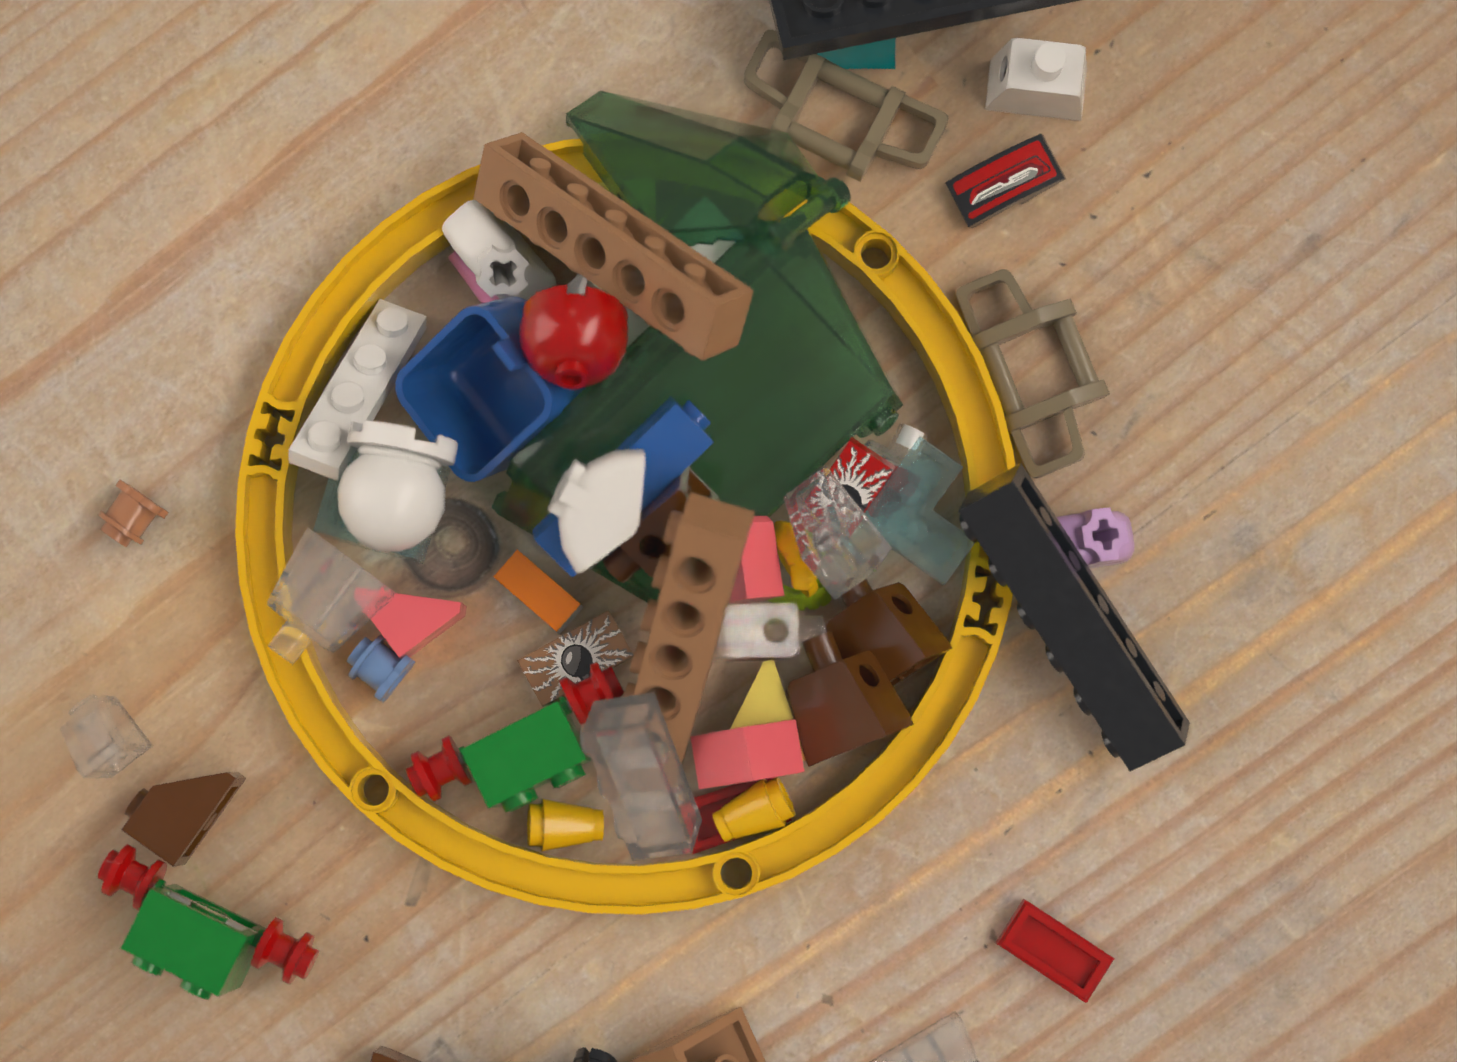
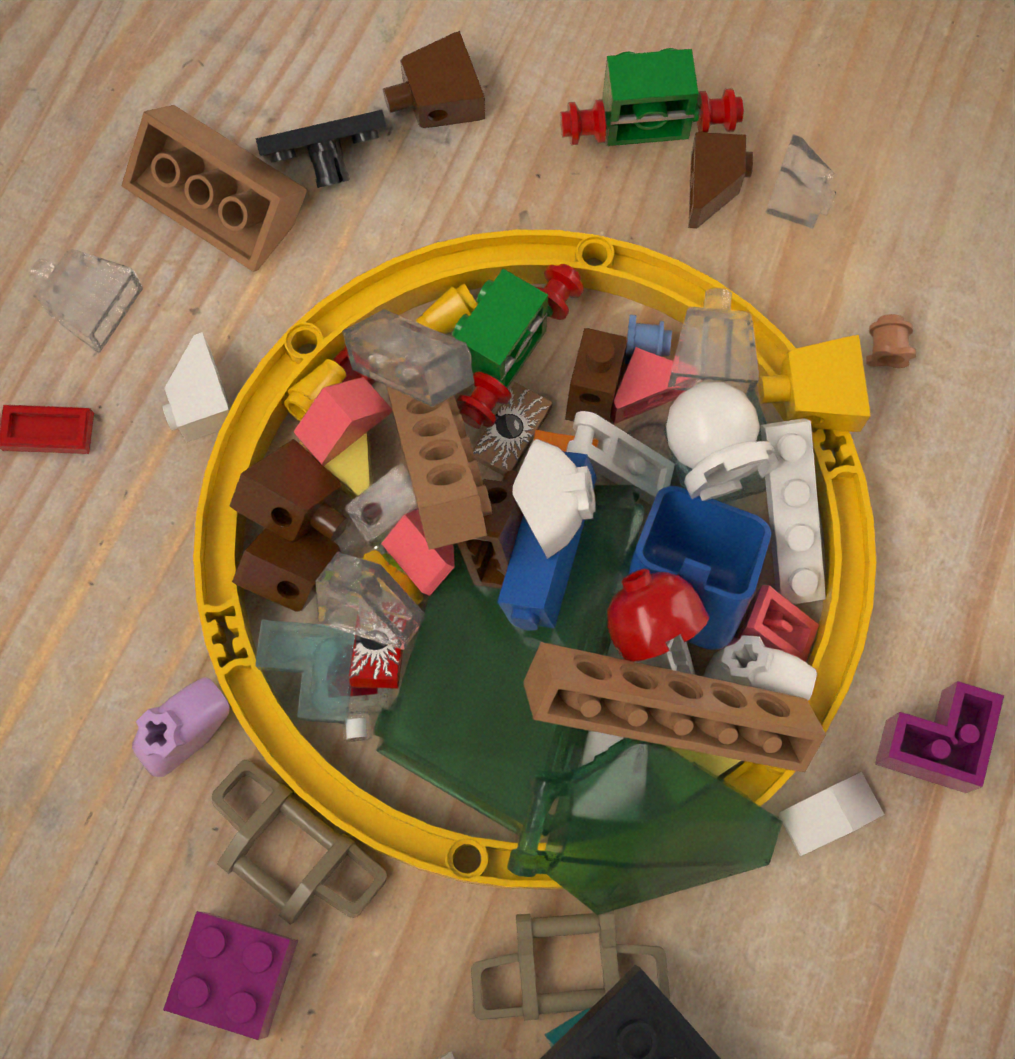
camera: 150 degrees right, 10 degrees down
(244, 493) = (822, 385): none -> yellow torso
(361, 86) = (950, 749): none -> magenta brick
(440, 291) = (779, 623): none -> coral slope
(456, 654) = (596, 372): none -> reddish brown torso
(491, 546) = (620, 455): none -> white plate
(511, 101) = (831, 814): none -> white slope
(877, 889) = (196, 393): none -> white slope
(1005, 180) = (398, 994): slope -> none
(1073, 618) = (150, 656): black brick -> none
(1148, 281) = (230, 975): none -> magenta brick

